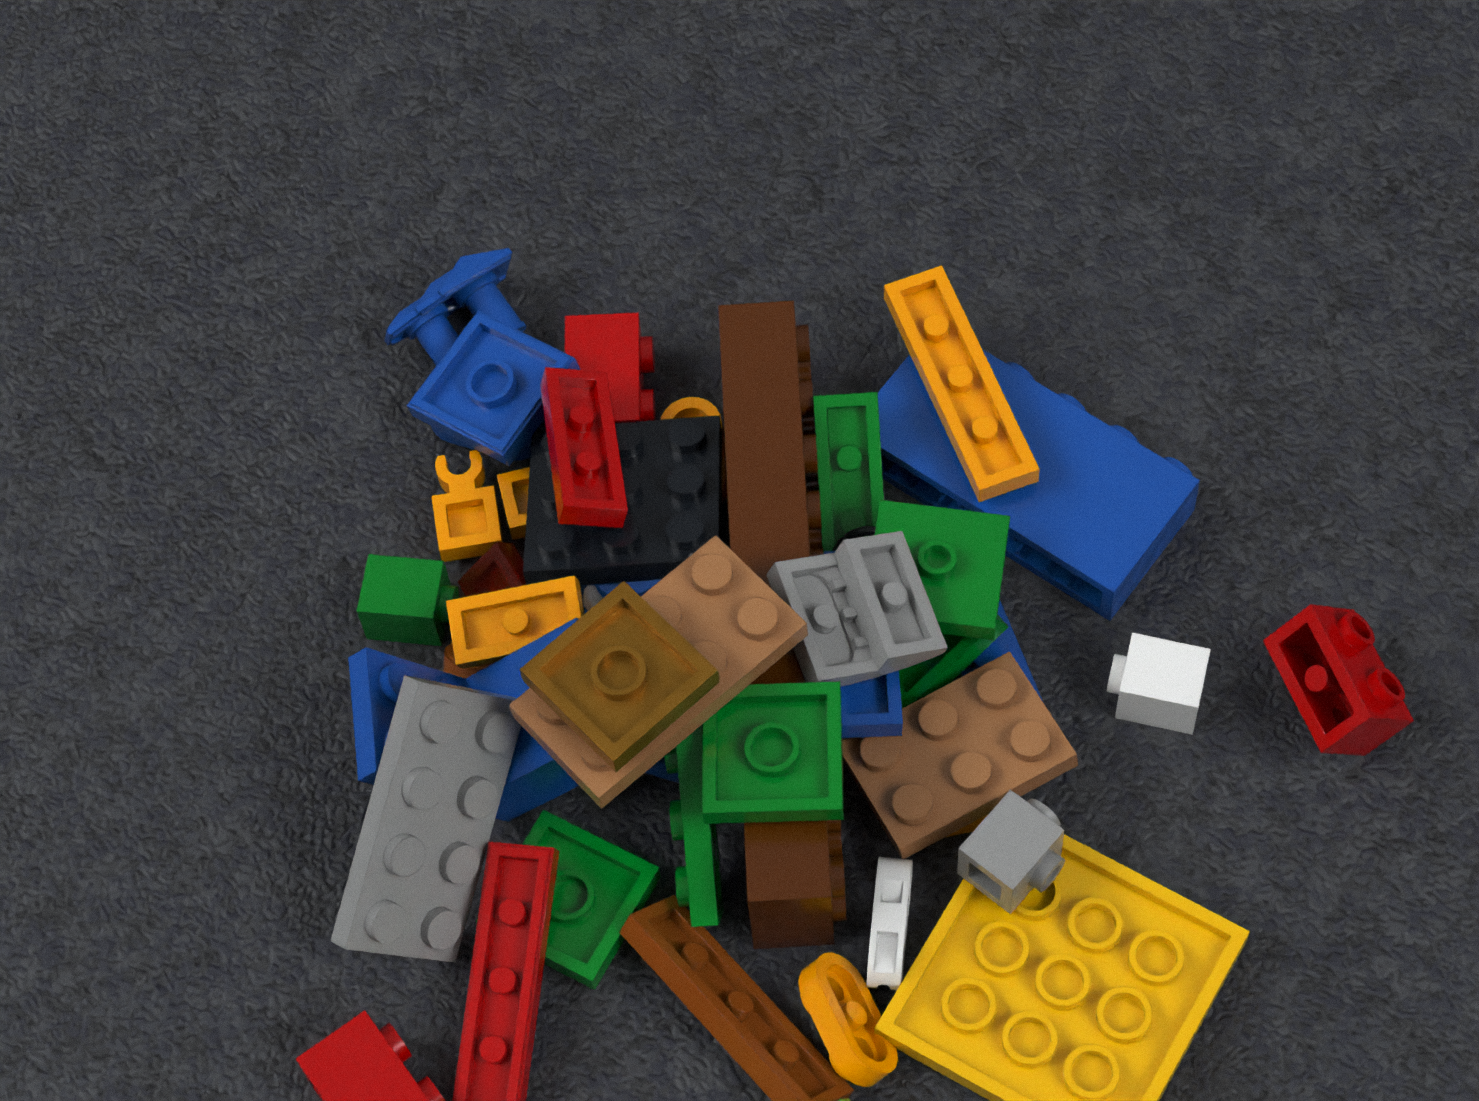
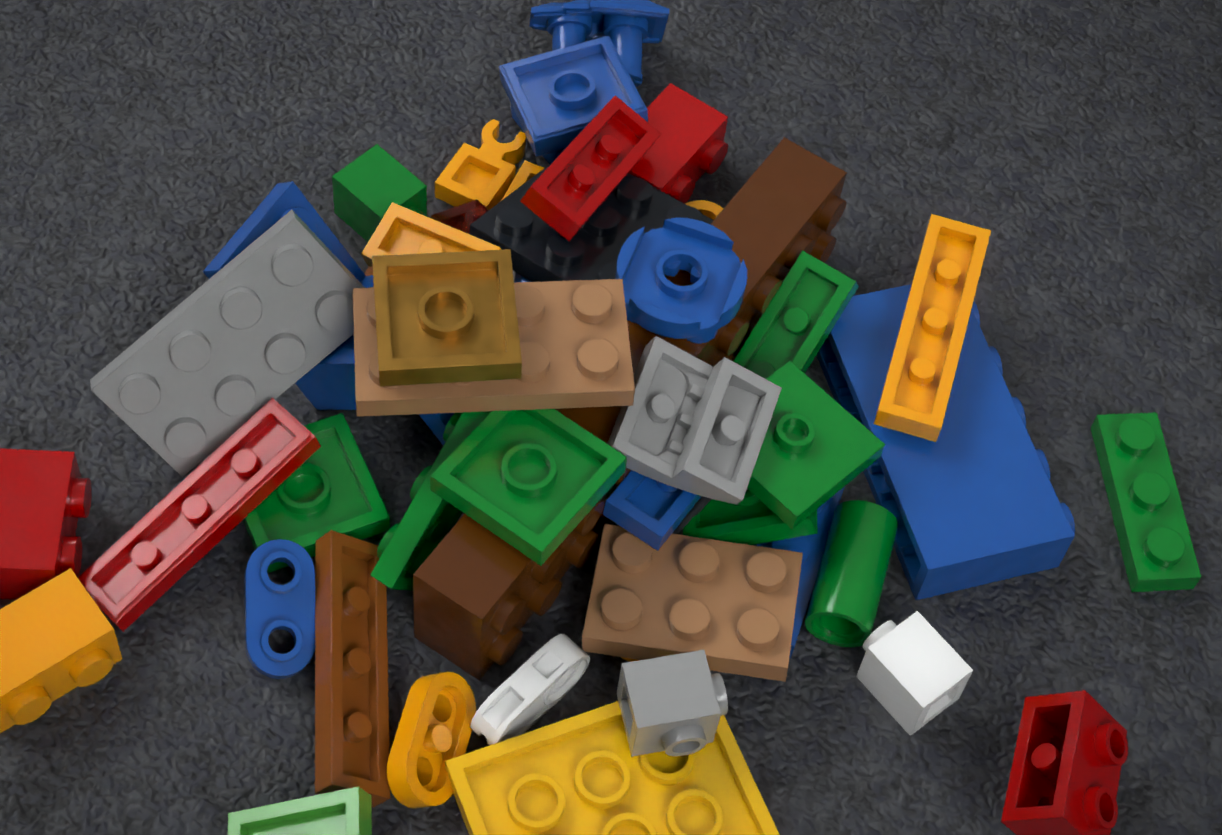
camera: 25 degrees right, 5 degrees down
(635, 1013) = (279, 608): none -> blue plate
(766, 466) = (675, 310): none -> blue plate
(1052, 637) = (851, 573): none -> green pin
(1219, 406) = (1145, 502): none -> green plate

